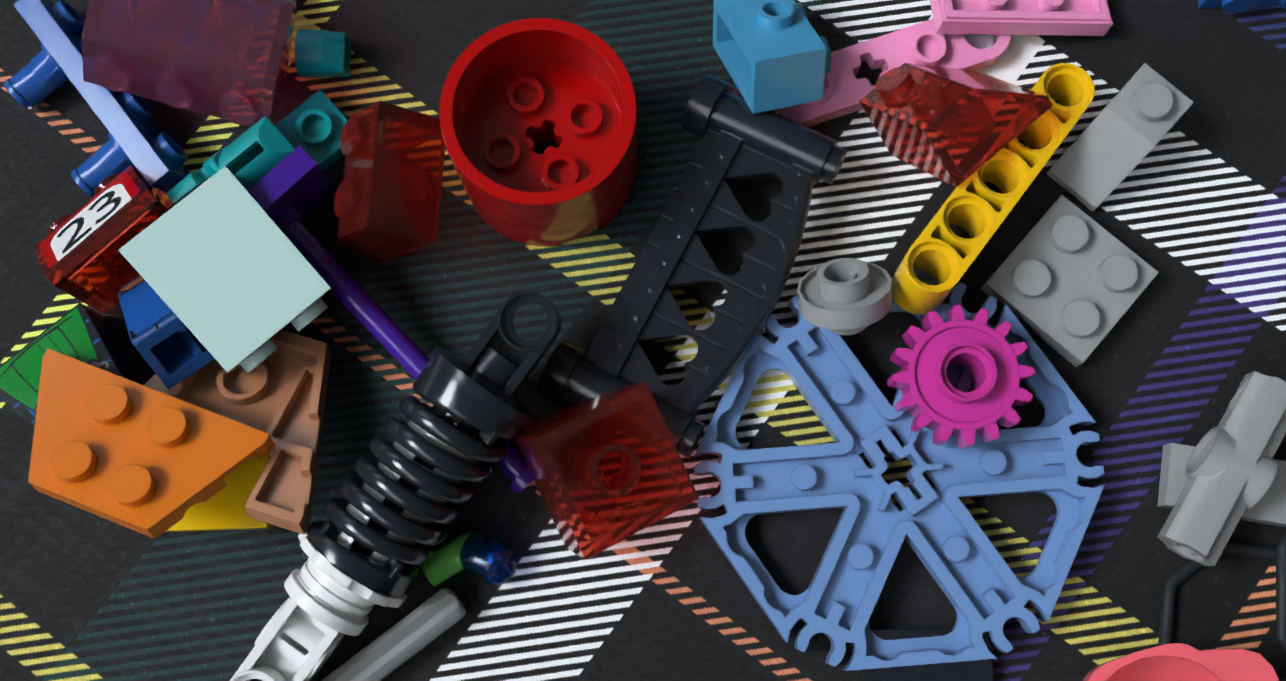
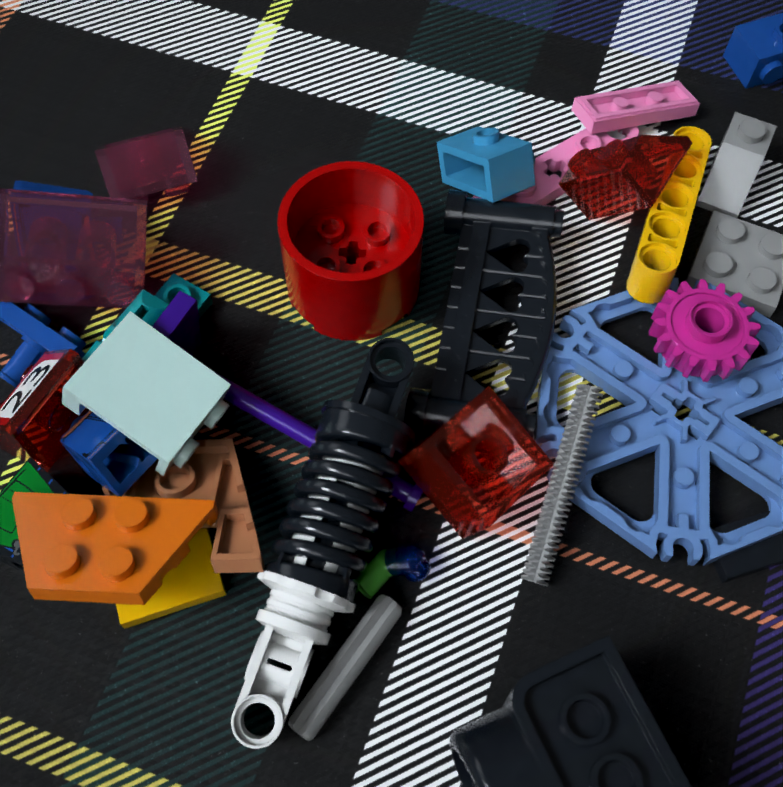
camera: 20 degrees left, 15 degrees down
(322, 54) = (168, 251): teal hose -> none
(390, 182) = (252, 307): clear red slope -> none
(704, 524) = (560, 484): none -> light grey axle
(845, 295) = (603, 298): light grey plate -> none

